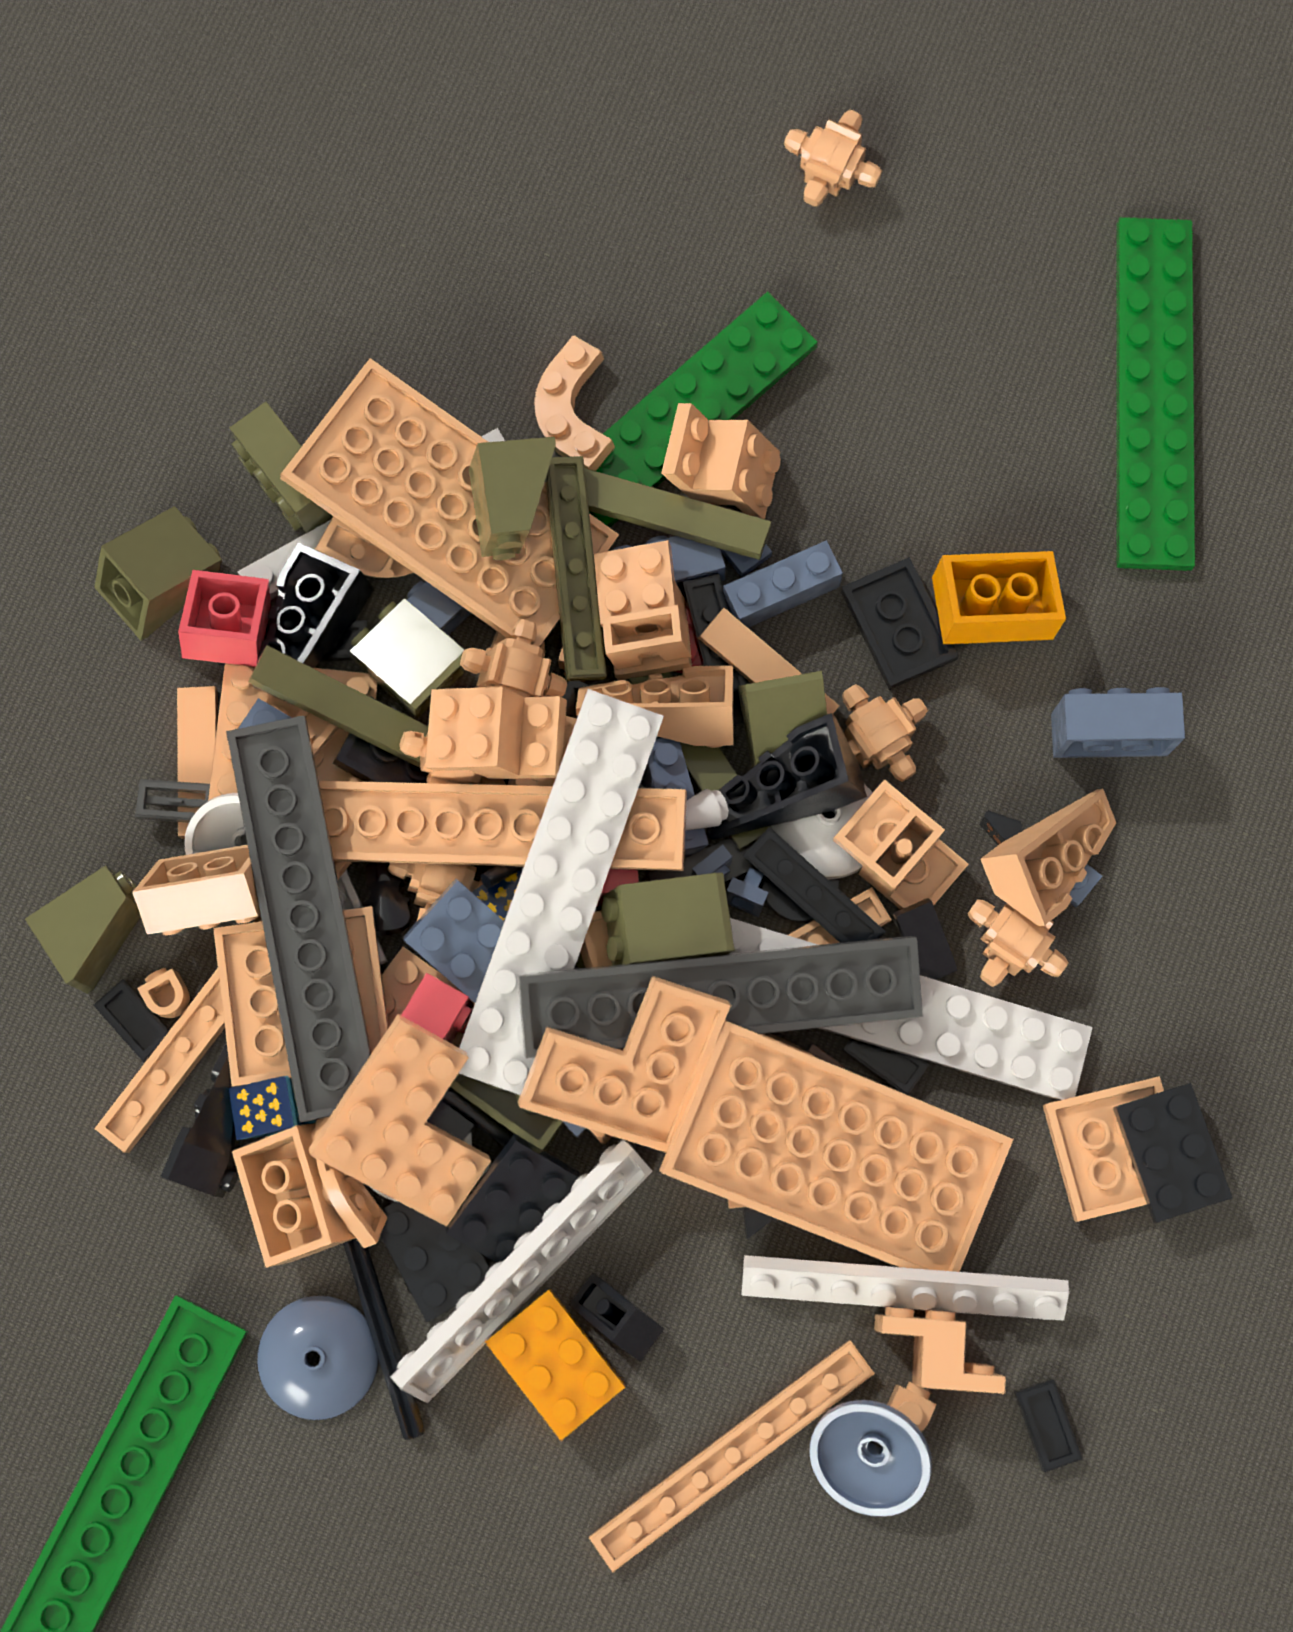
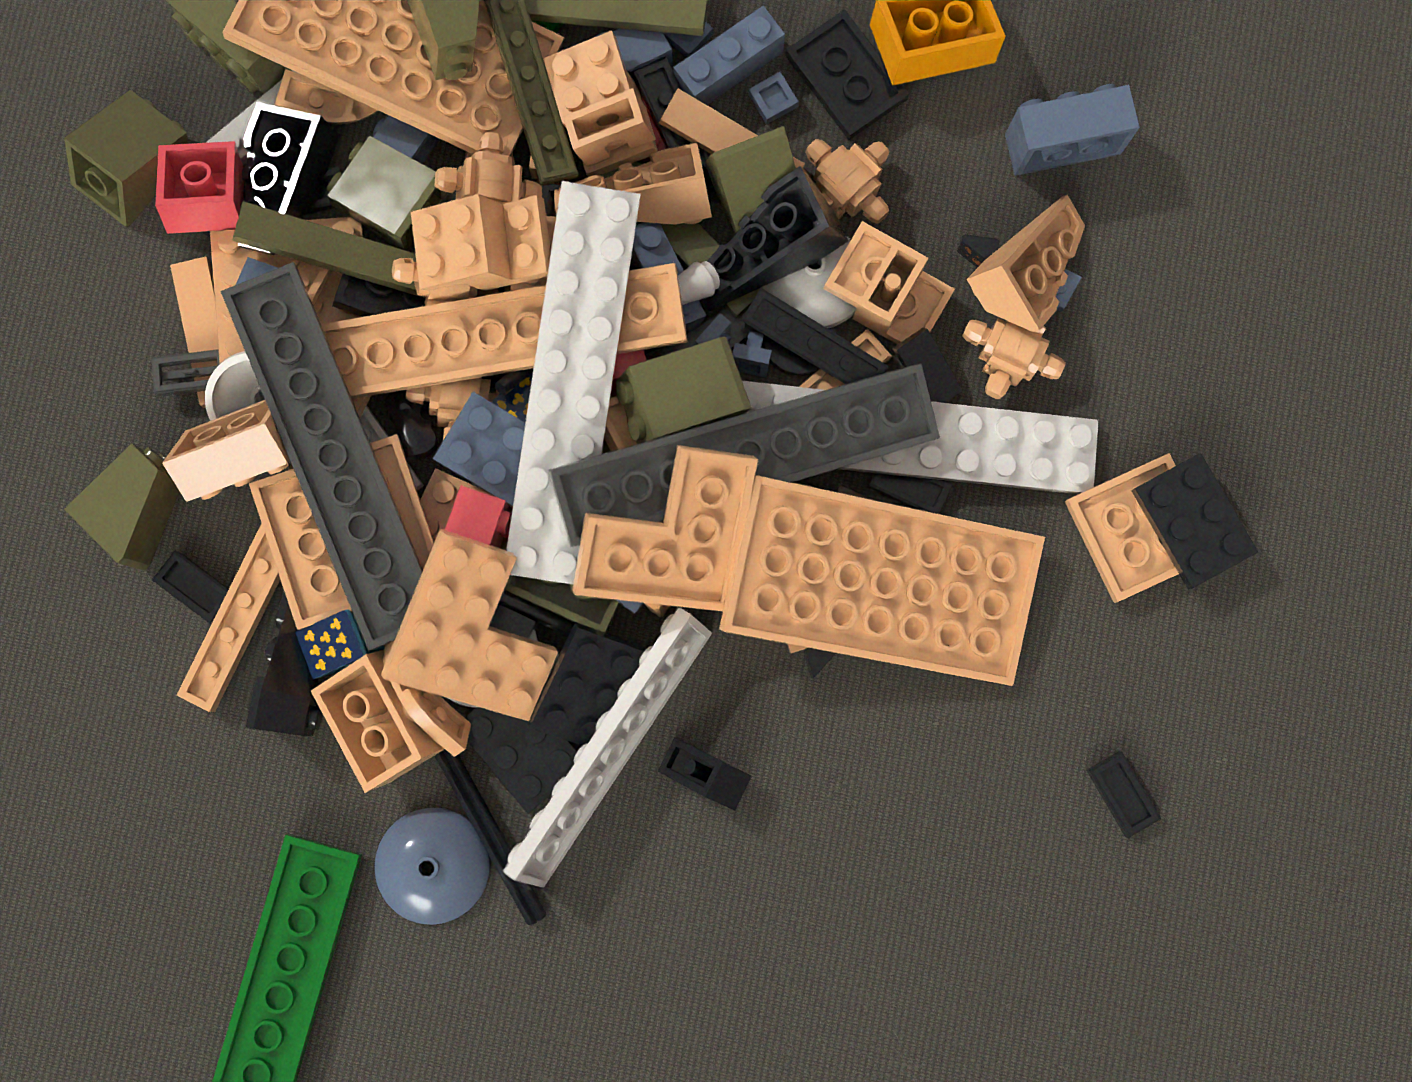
camera: 10 degrees left, 5 degrees up
(165, 993) = (217, 555): light nougat plate -> none
(555, 1364) = (656, 828): light orange brick -> none
(731, 1455) = (835, 879): light nougat tile -> none
(820, 633) = (773, 98): none -> sand blue plate
(869, 1476) = (965, 873): sand blue dish -> none
(905, 1288) = (968, 694): white plate -> none
(913, 1403) = (993, 804): light nougat plate -> none
(939, 1351) = (1013, 746): light nougat bracket -> none

